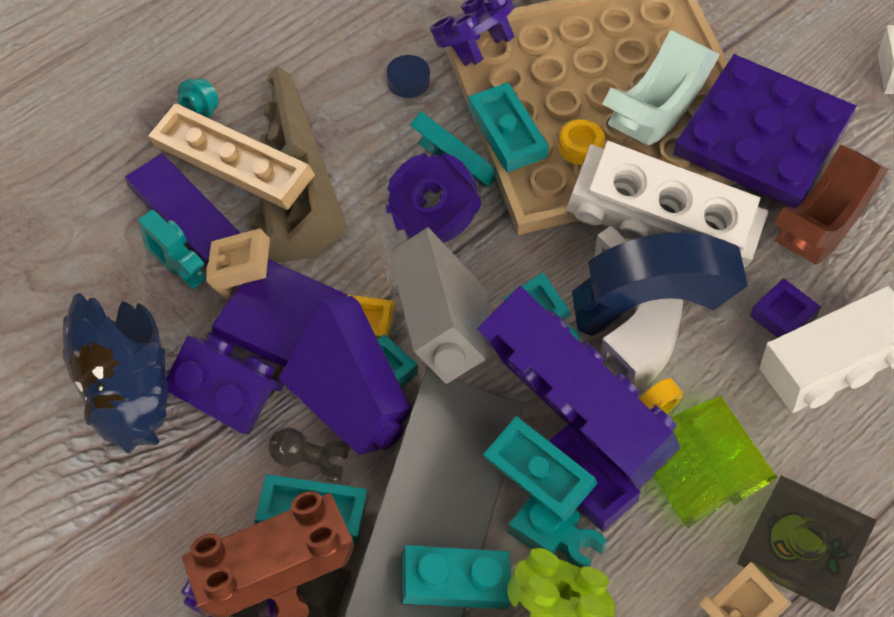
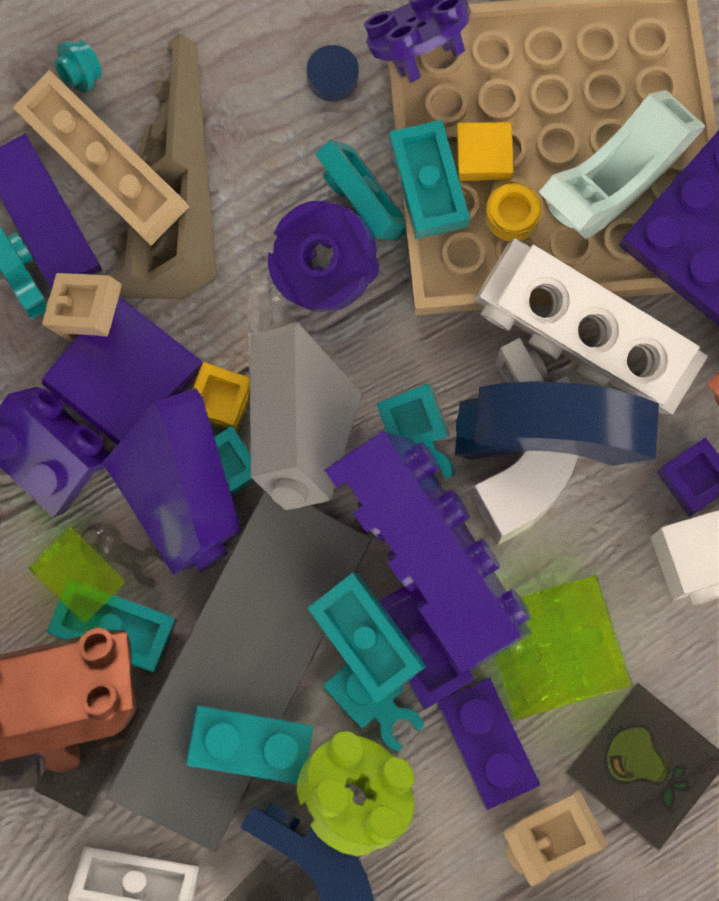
camera: 10 degrees right, 20 degrees up
(273, 465) = (76, 574): none -> clear neon green bracket
(548, 102) = (484, 151): none -> yellow tile
(663, 394) = (524, 567): yellow tile -> none
(665, 549) = (488, 744): none -> dark purple plate

